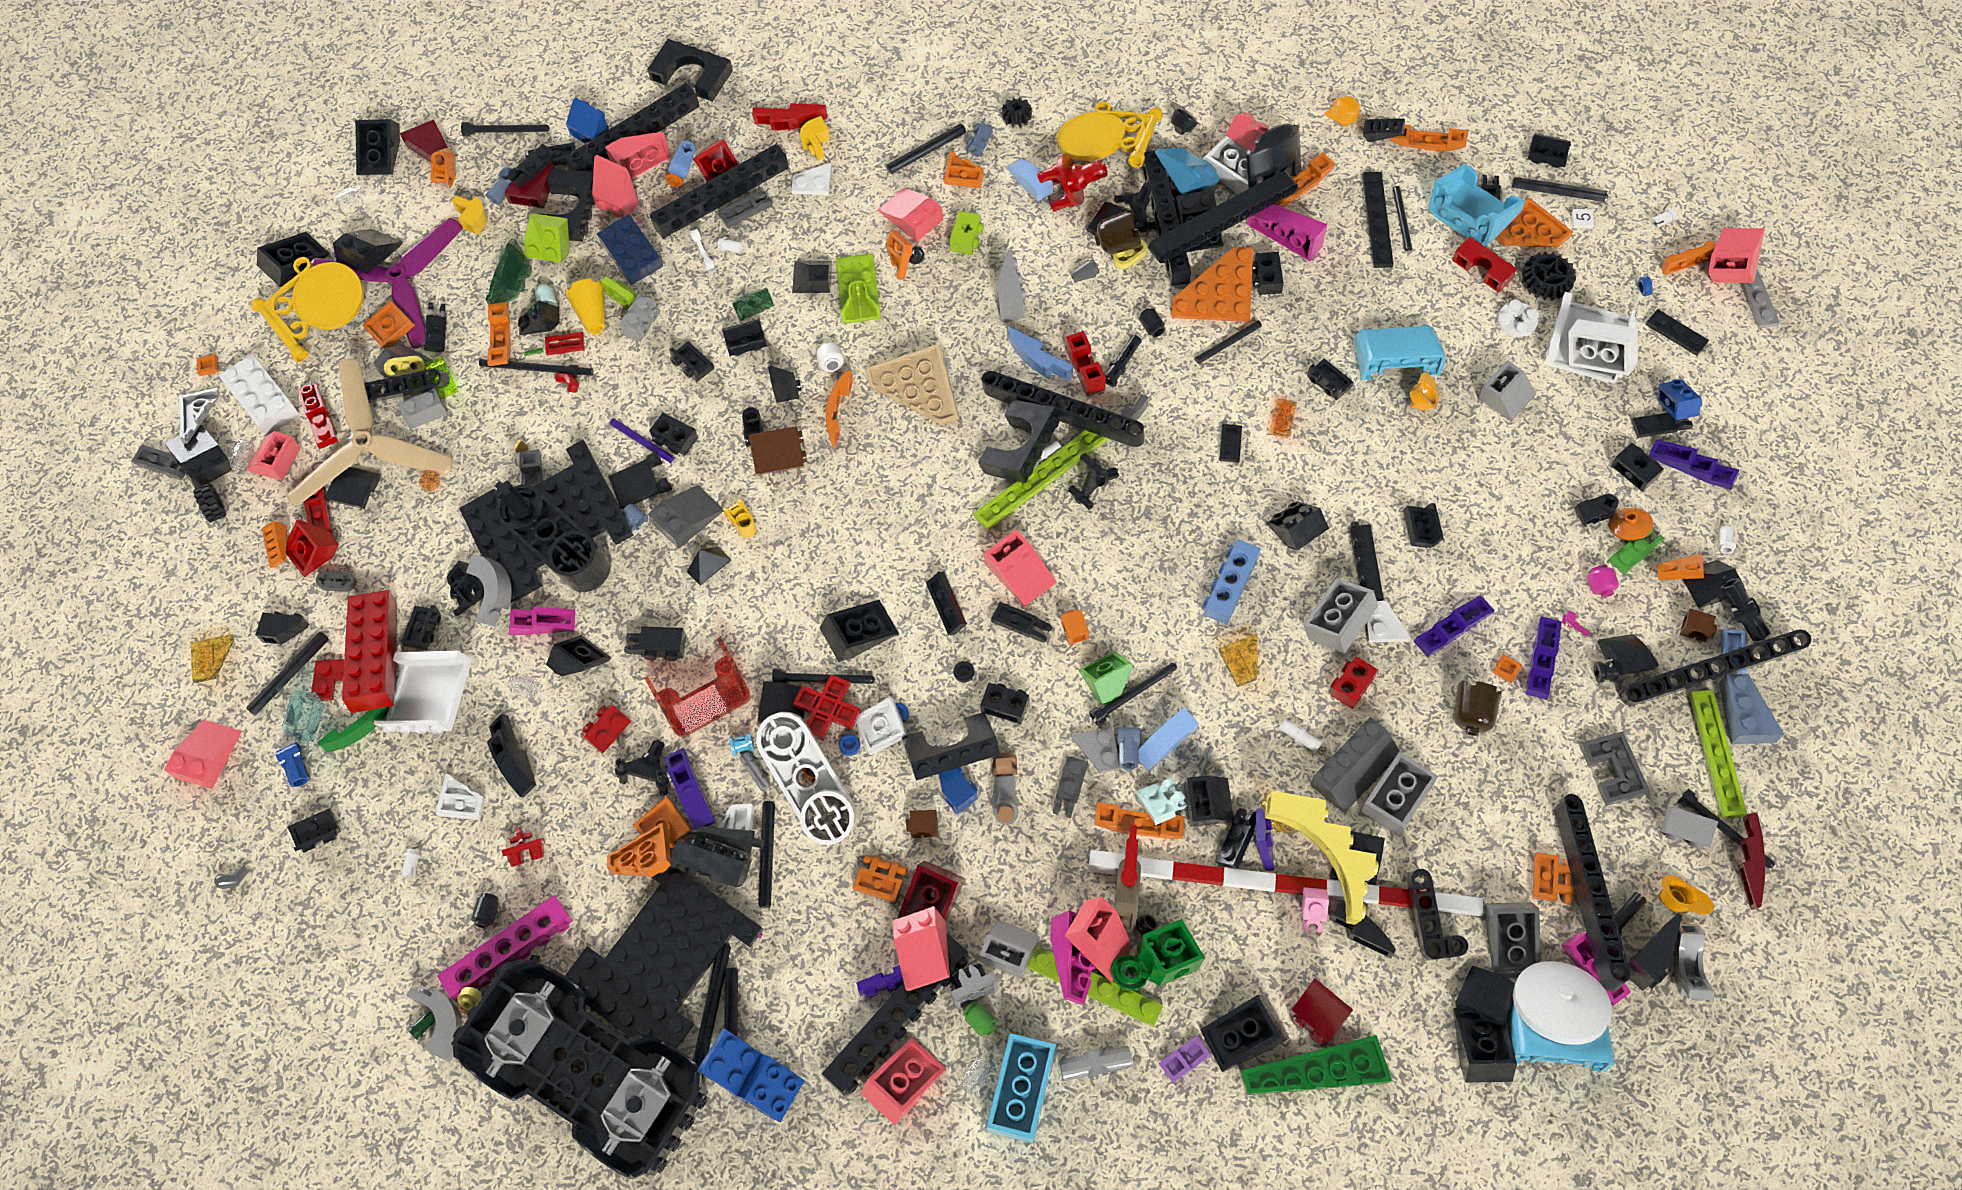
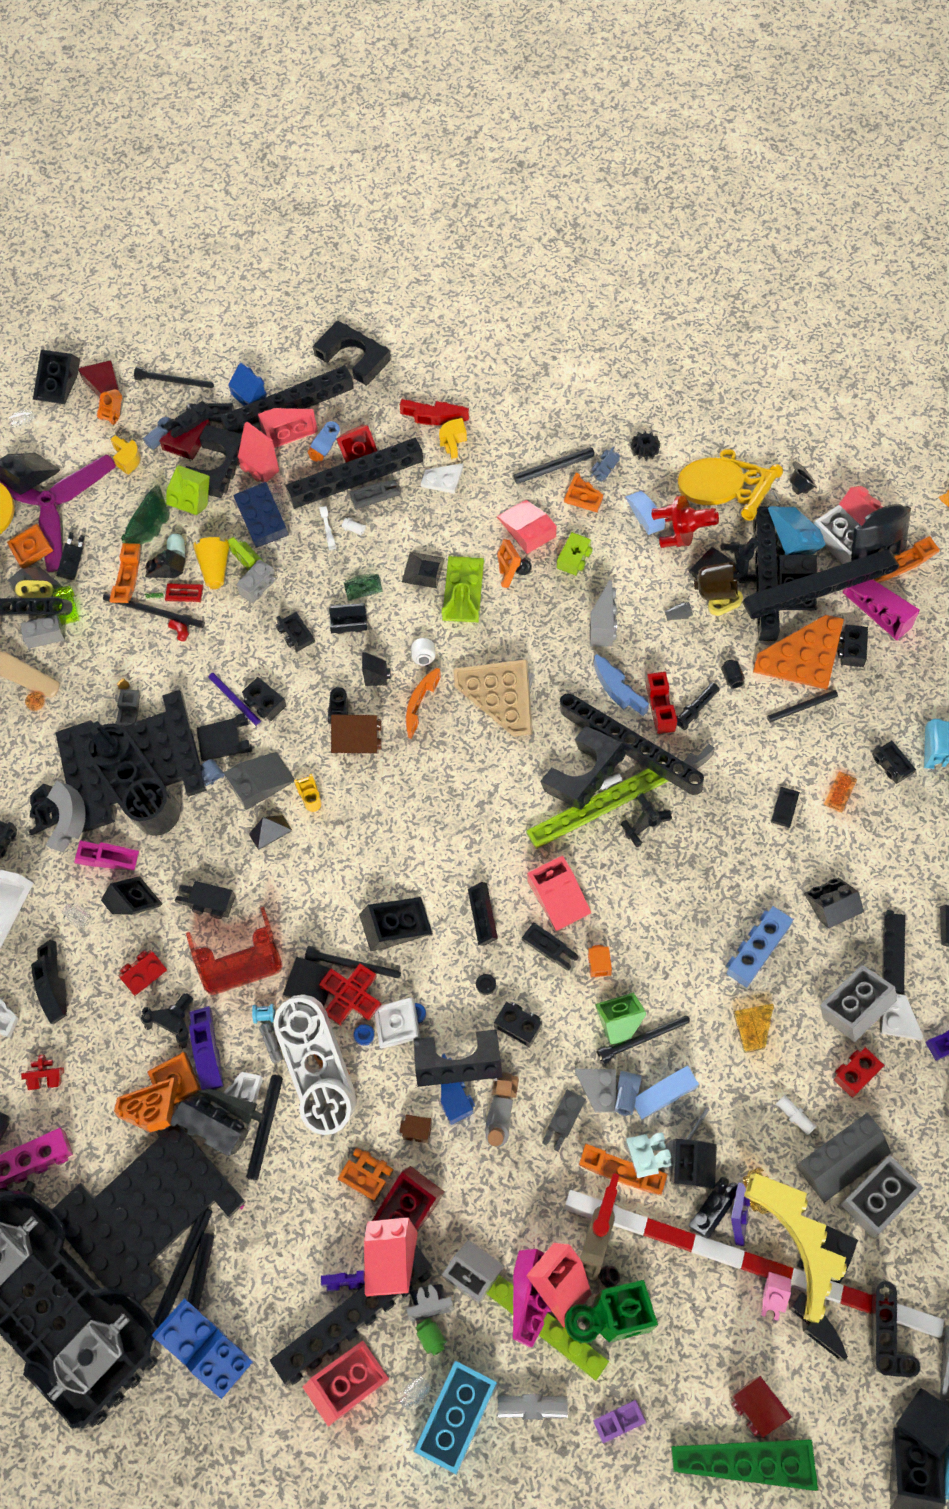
camera: 10 degrees right, 0 degrees up
(1244, 1033) = (682, 1408): black slope -> none

